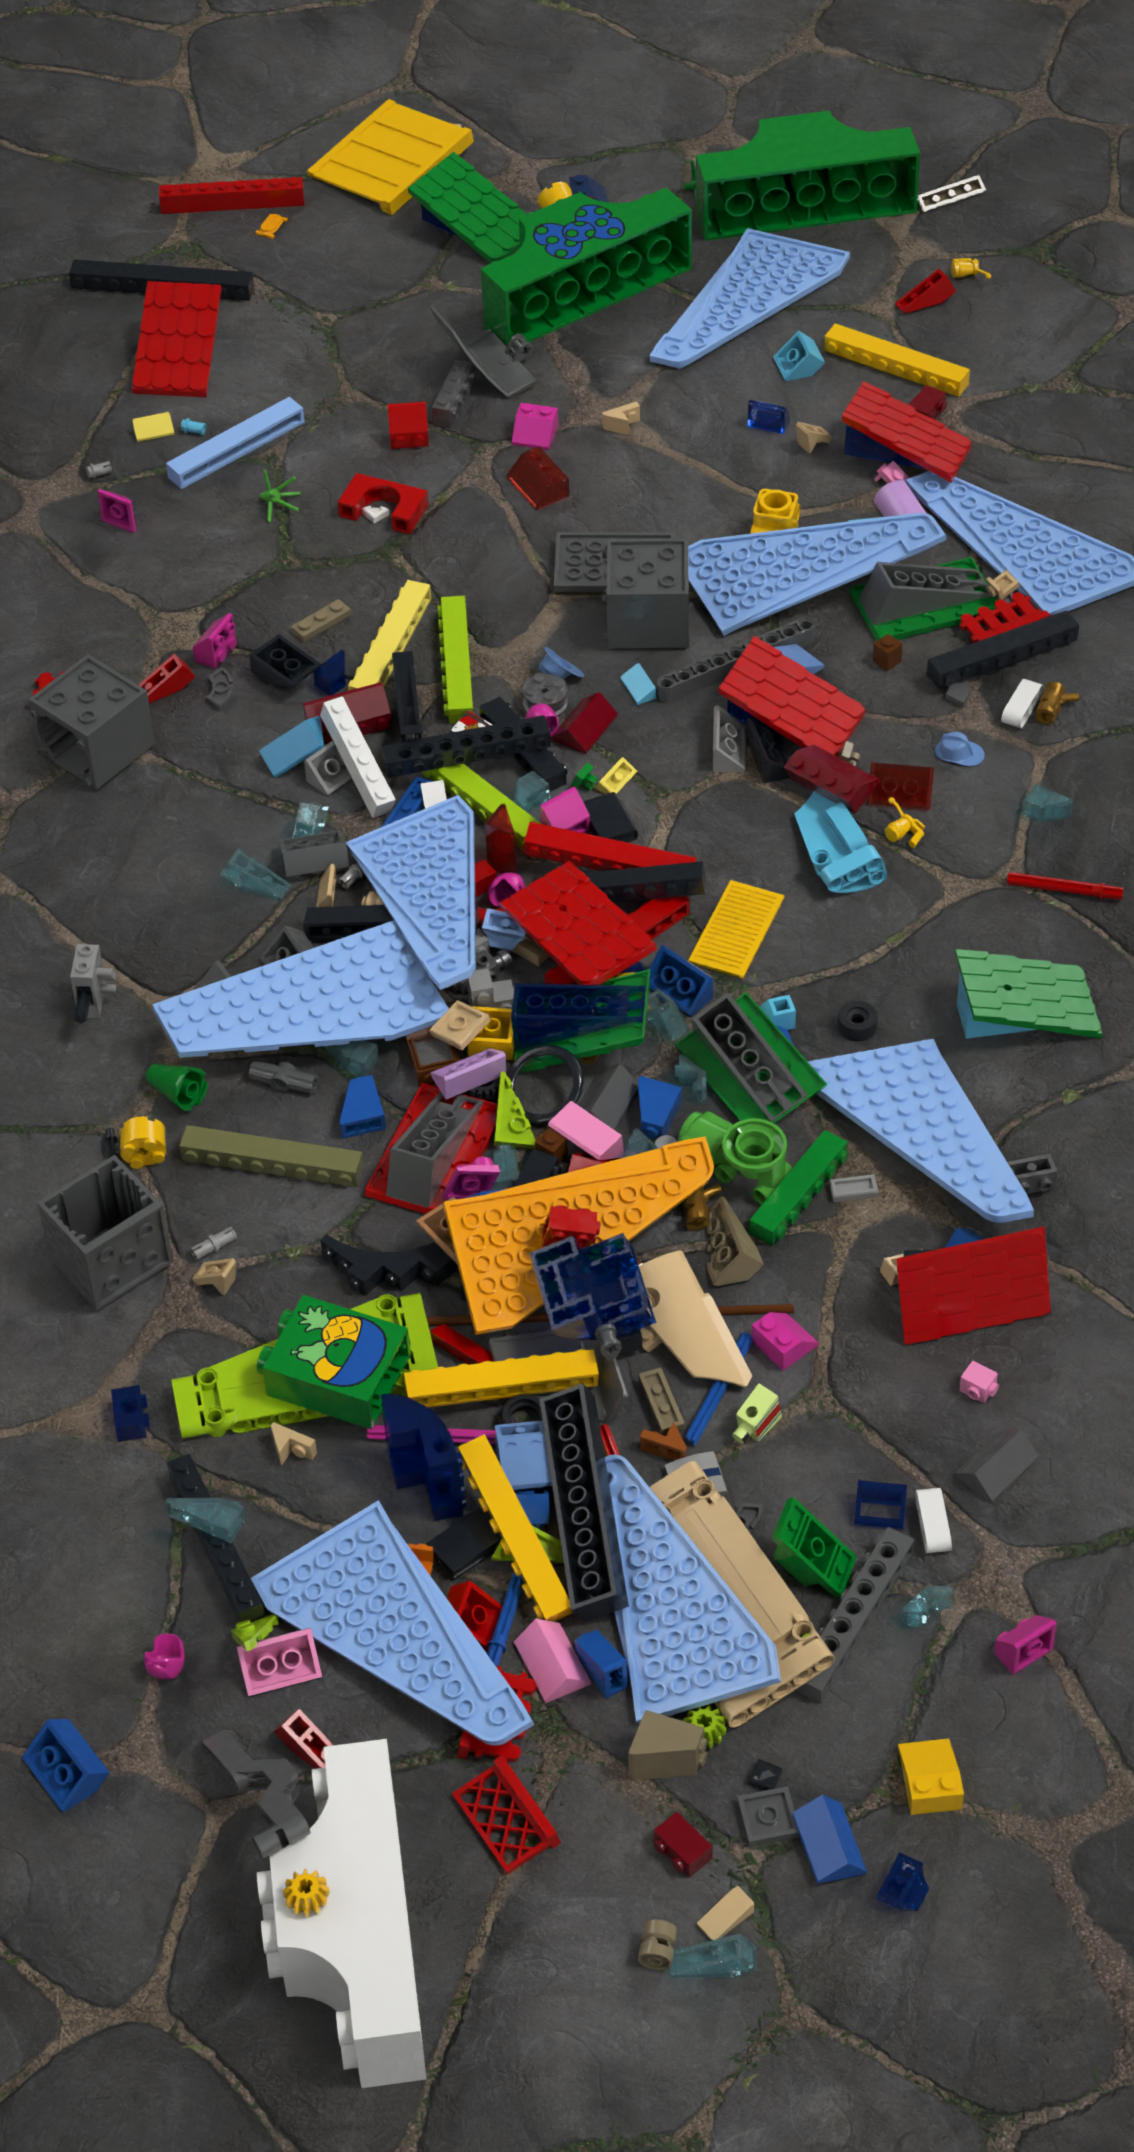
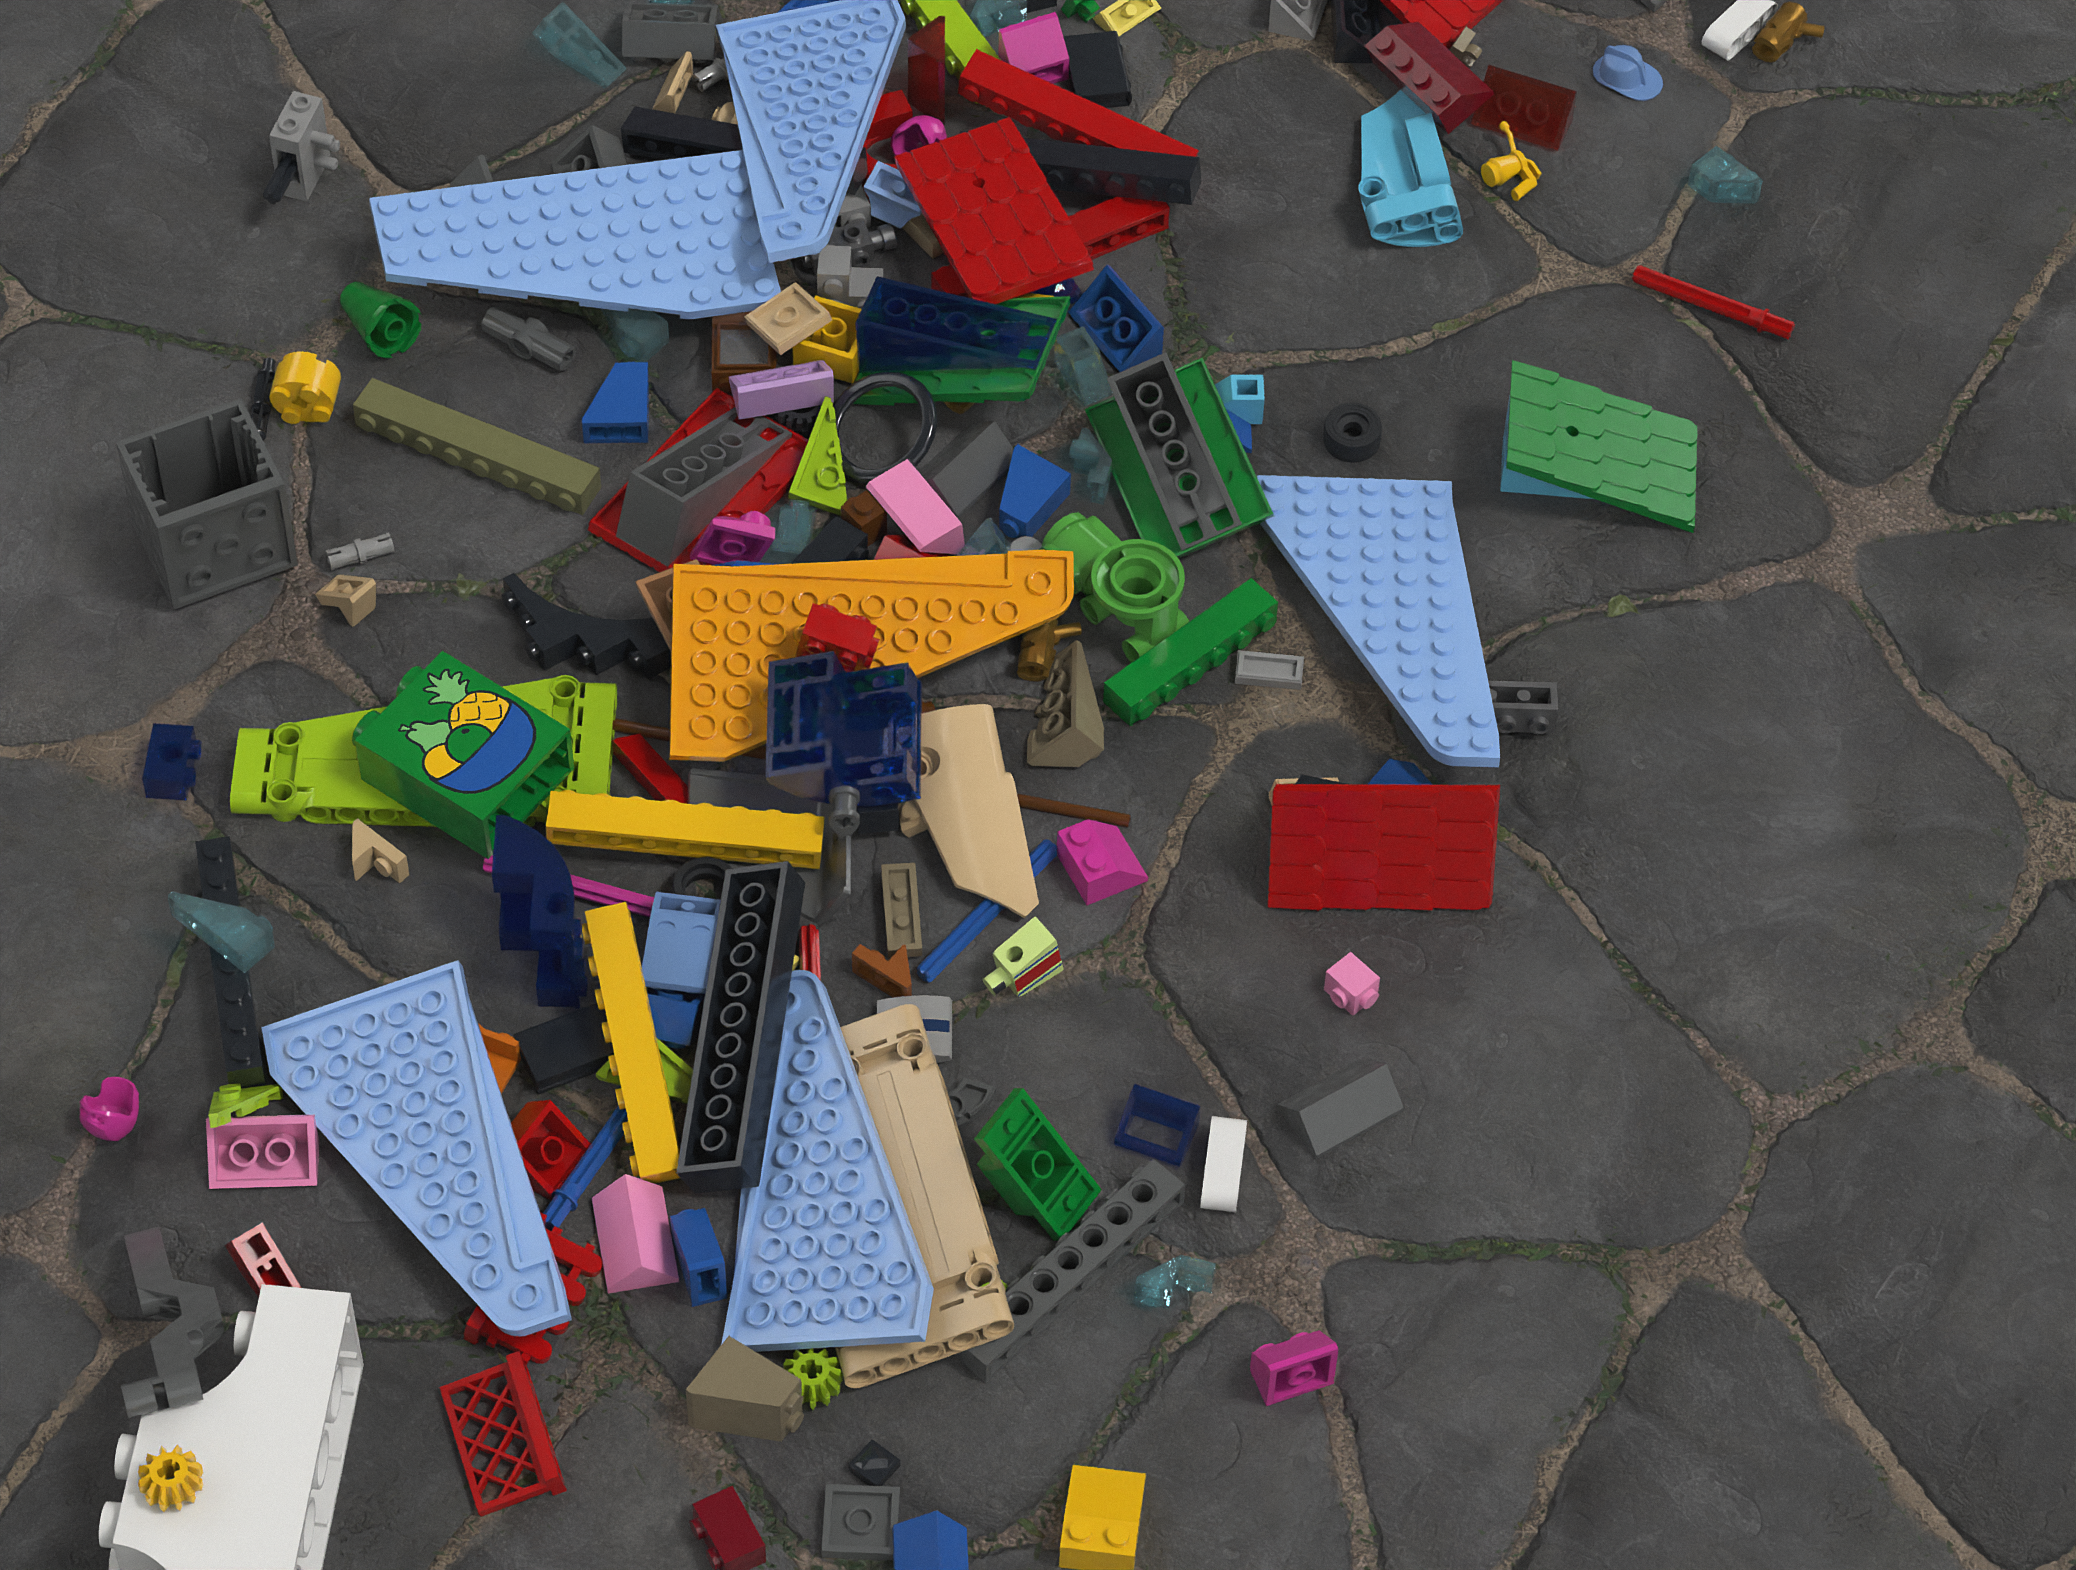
camera: 10 degrees right, 5 degrees up
(736, 929) = (1226, 264): yellow window -> none

